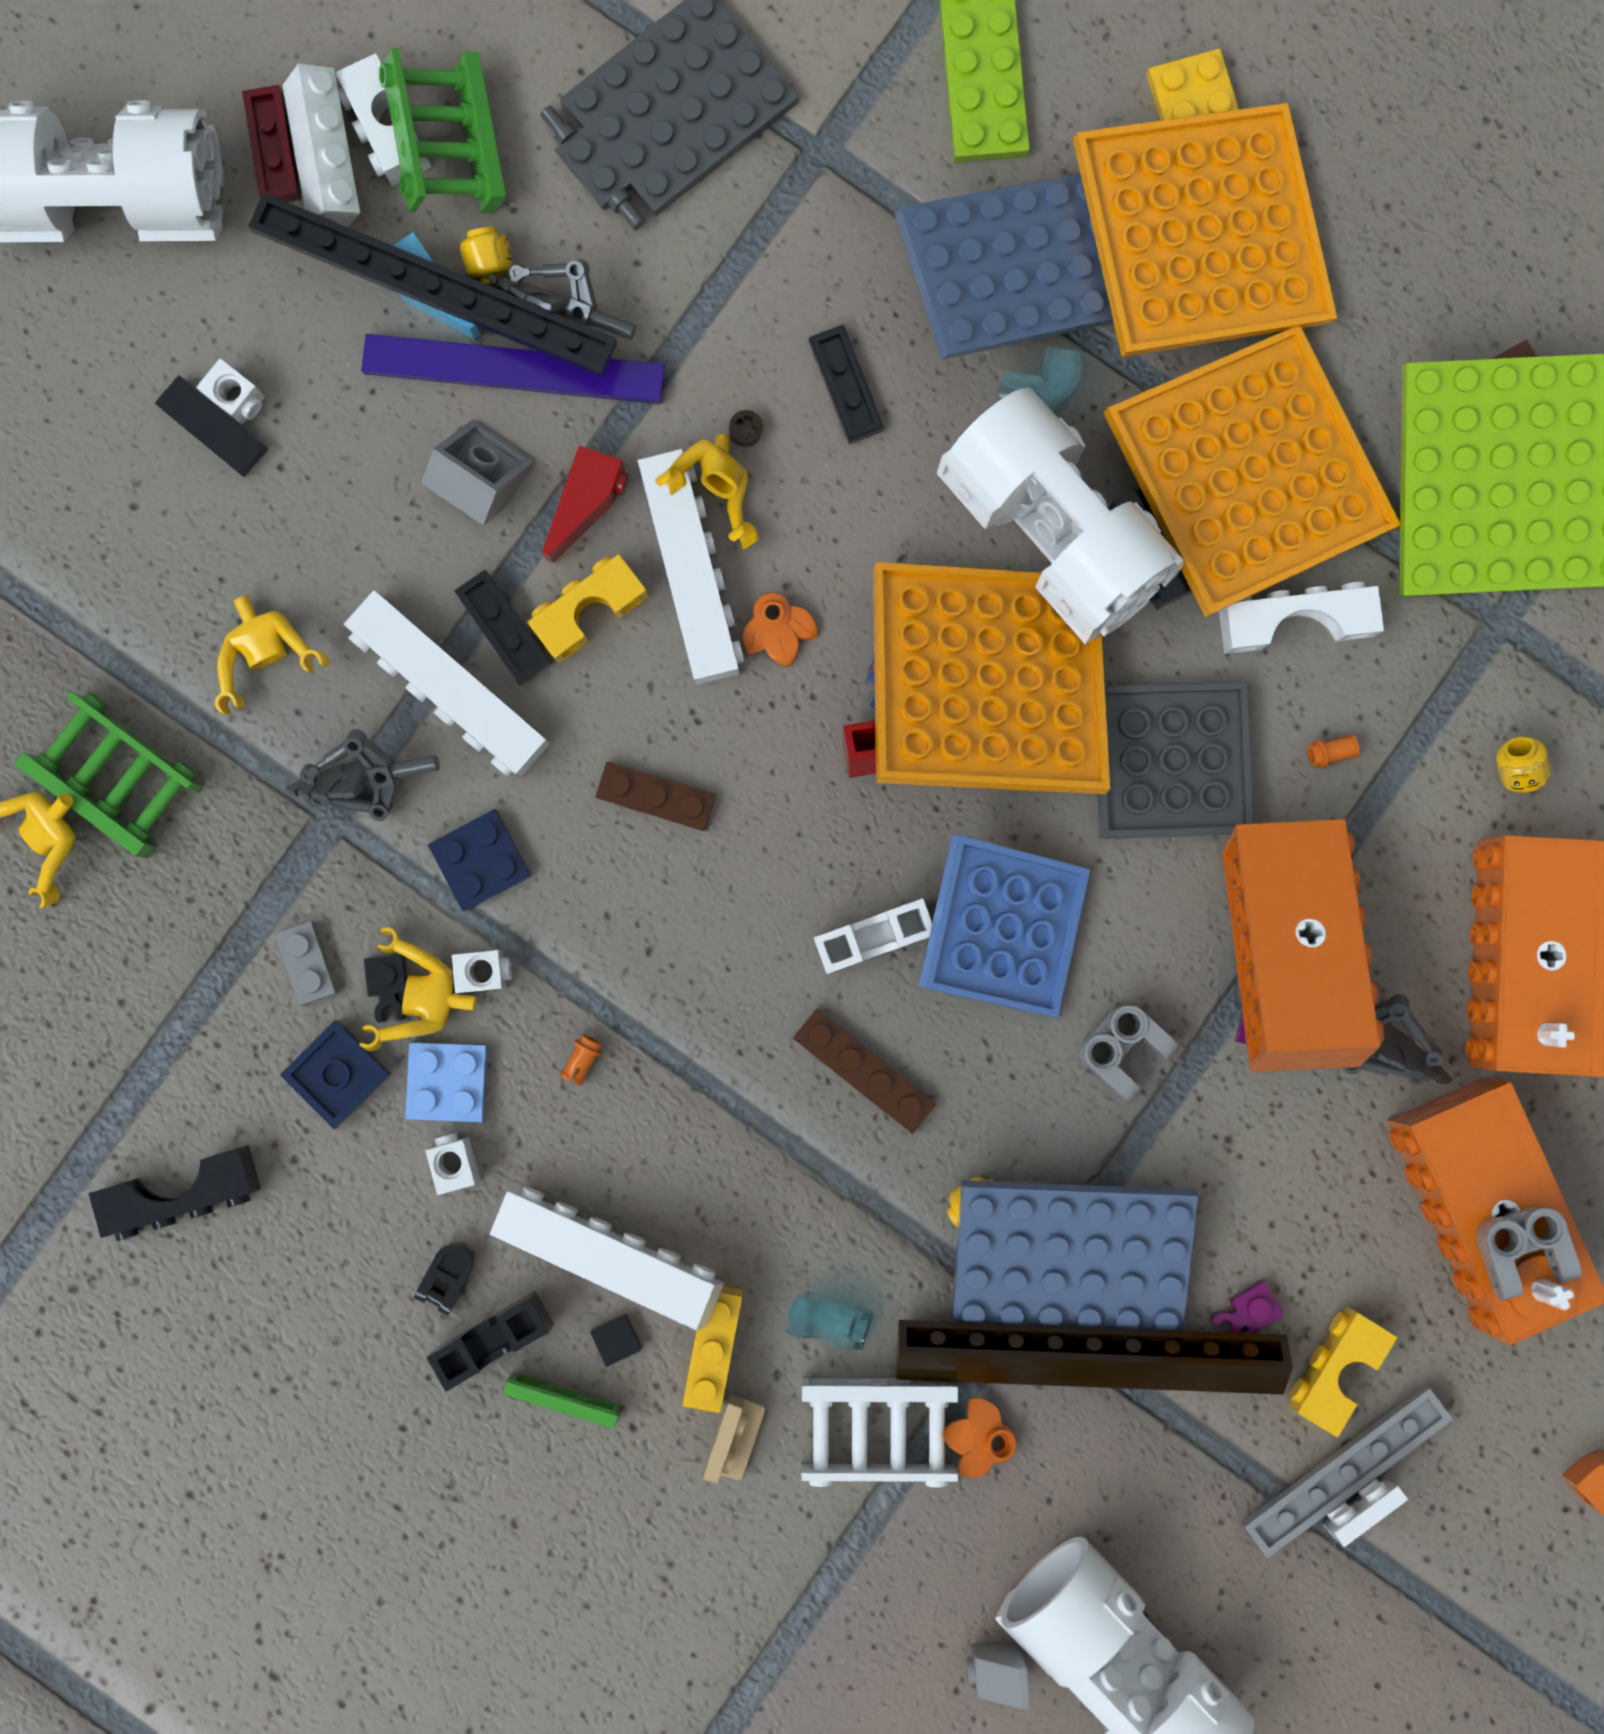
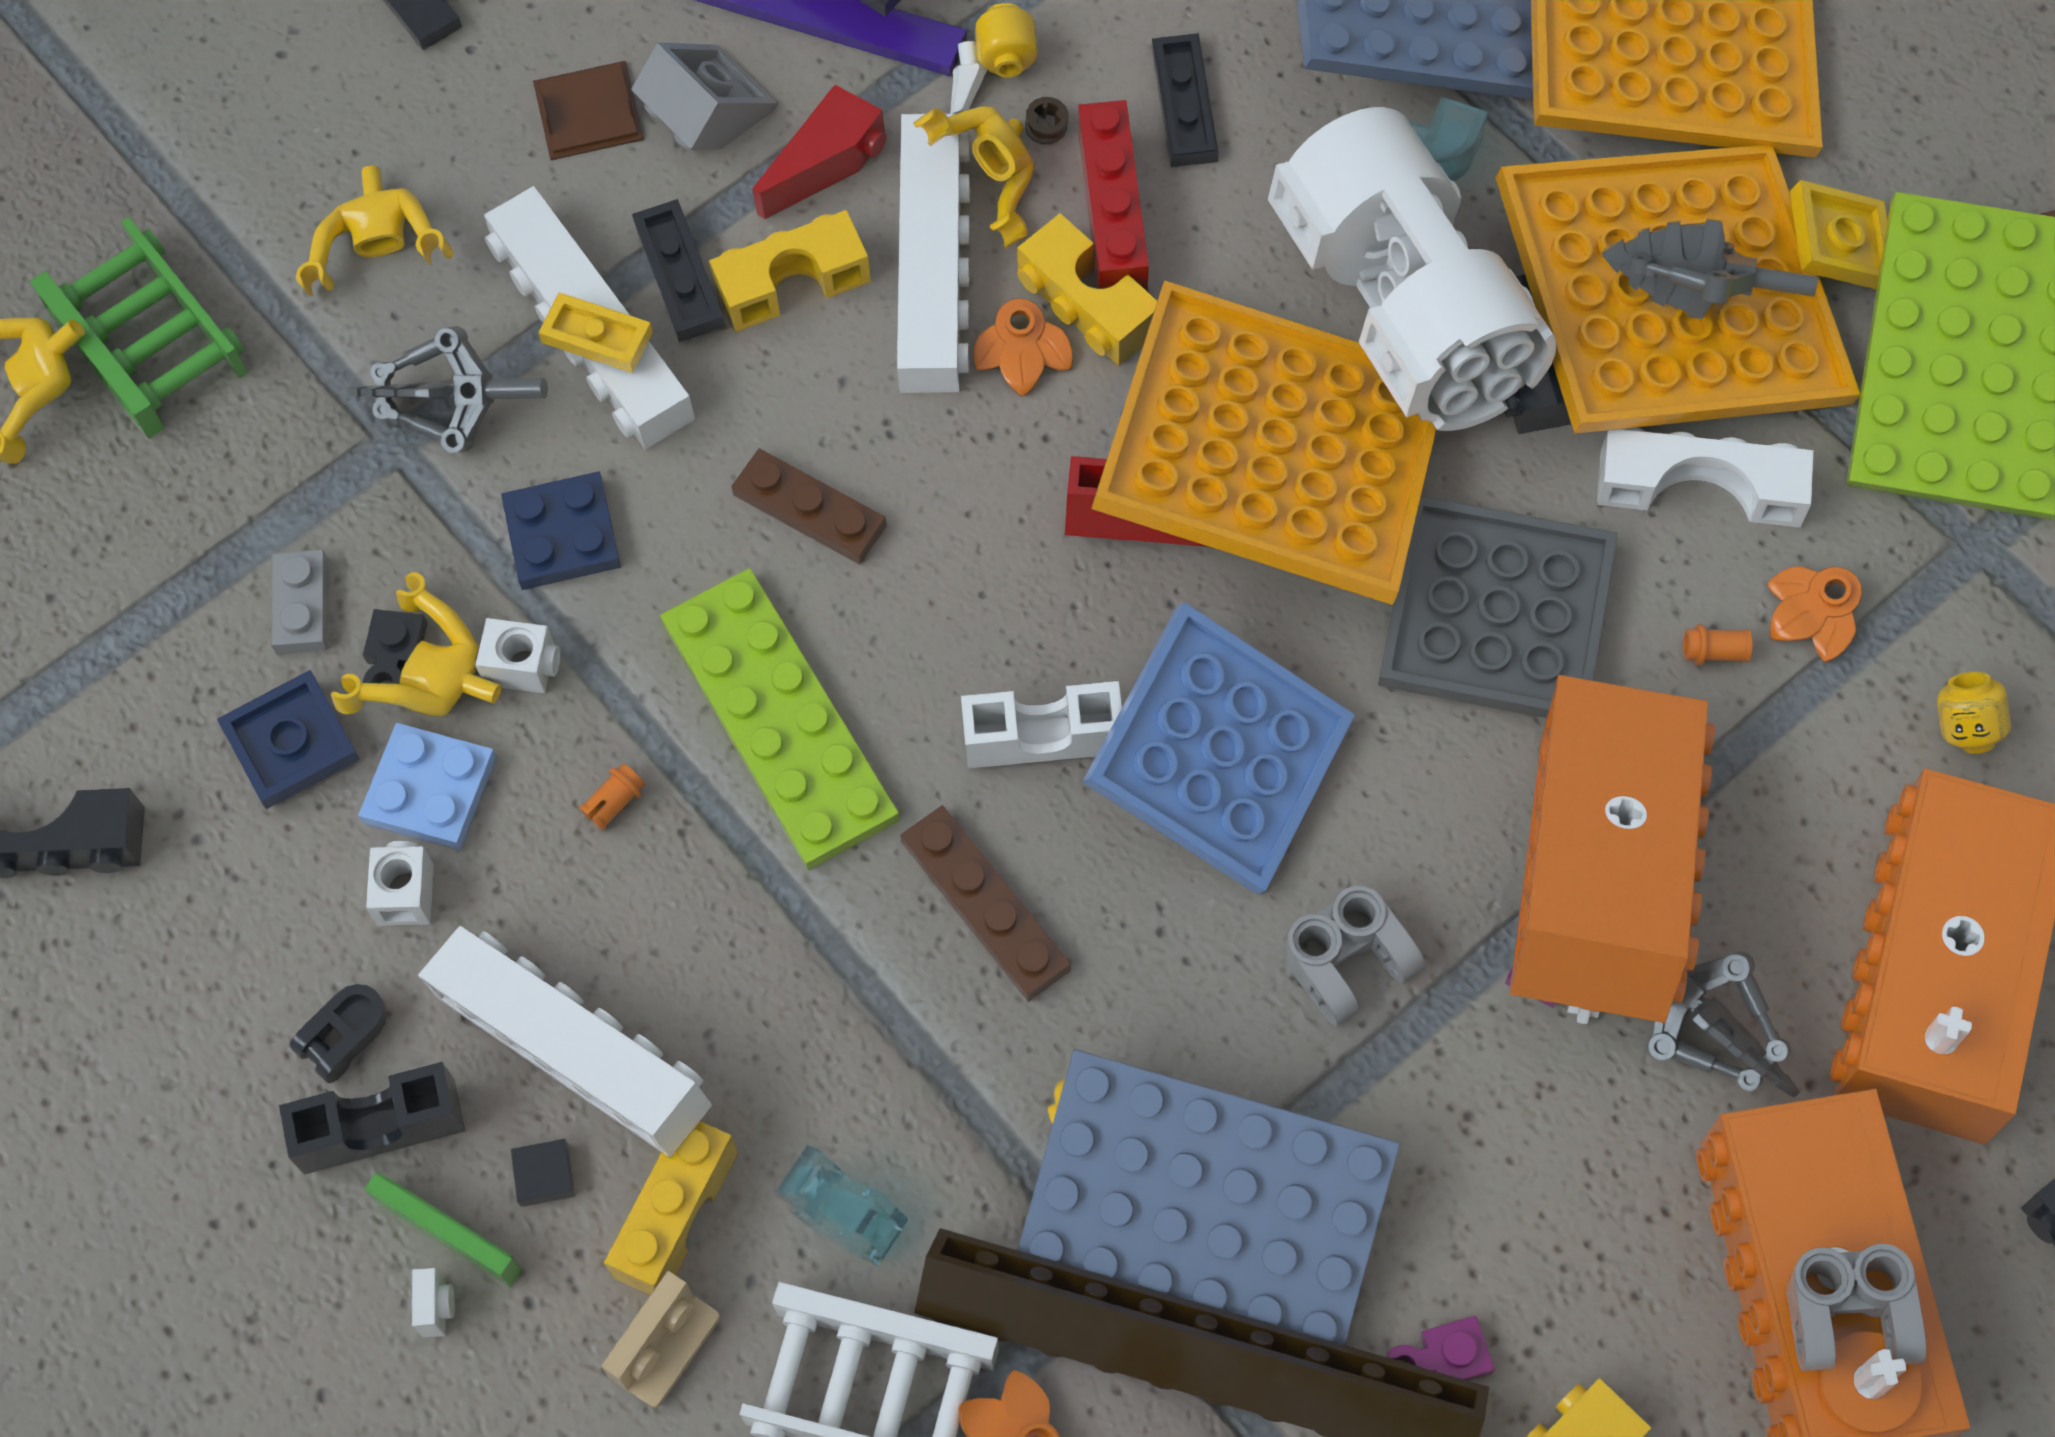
camera: 20 degrees right, 20 degrees down
(389, 500) = (588, 110): none -> reddish brown piece
(461, 709) = (595, 332): none -> yellow plate
(570, 1451) = (431, 1302): none -> white plate
(675, 406) = (966, 78): none -> white bar
(680, 967) = (779, 719): none -> lime plate
(698, 369) = (1006, 40): none -> yellow head
(815, 491) = (1112, 193): none -> red brick
(840, 593) = (1110, 318): none -> yellow arch
(1275, 466) = (1696, 267): none -> dark grey bar
(1365, 393) = (1839, 233): none -> yellow plate
(1392, 708) = (1811, 613): none -> orange plate

